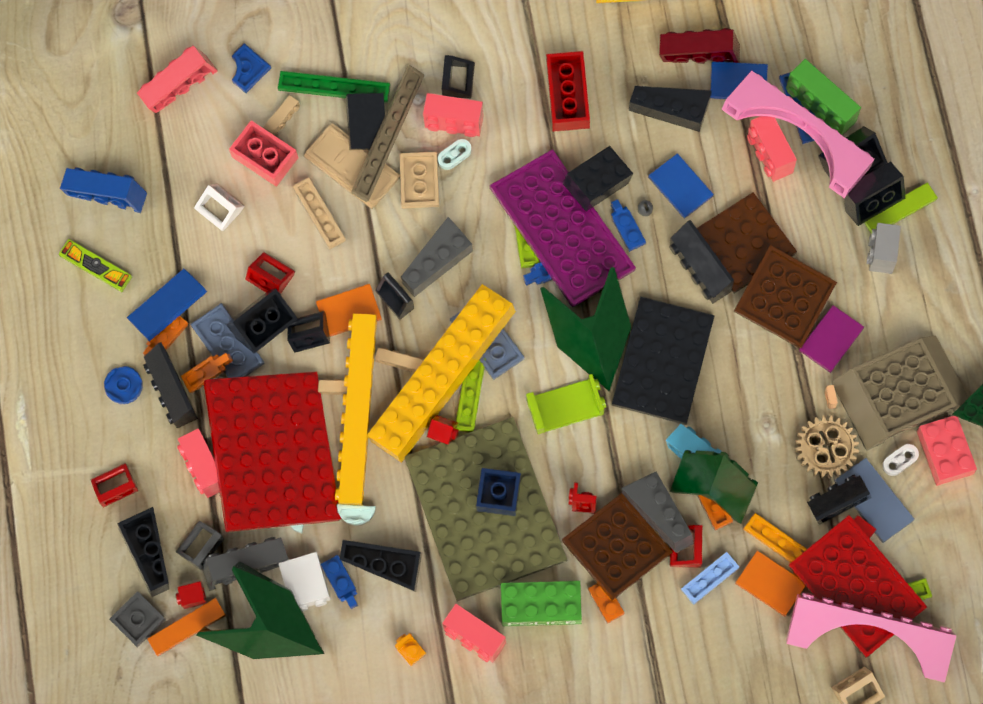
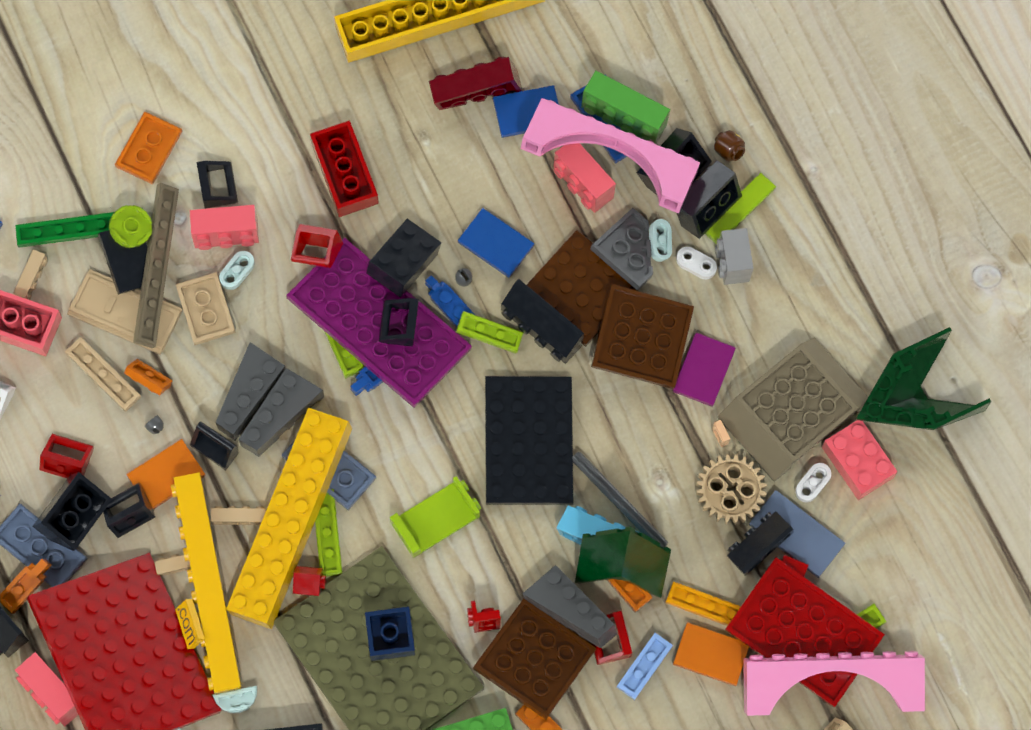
camera: 25 degrees left, 0 degrees up
(333, 439) = (190, 623): none -> yellow tile
(350, 266) = (155, 425): none -> dark grey hinge
(356, 225) = (148, 377): none -> orange plate
(375, 95) = (130, 226): none -> lime tile
(409, 34) = (148, 148): none -> orange tile
(457, 281) = (279, 411): none -> dark grey wedge
(530, 143) = (317, 237): none -> red tile
(579, 247) = (402, 339): none -> black tile
(594, 341) = (449, 439): dark green windscreen -> none
(654, 260) = (489, 332): none -> lime tile
(672, 105) = (462, 156): black wedge -> none
(726, 430) = (617, 498): none -> dark grey axle
(792, 218) = (627, 248): none -> dark grey plate
(824, 220) = (660, 241): none -> light aqua plate
(847, 247) = (696, 263): none -> white plate
(906, 152) = (729, 146): none -> reddish brown head

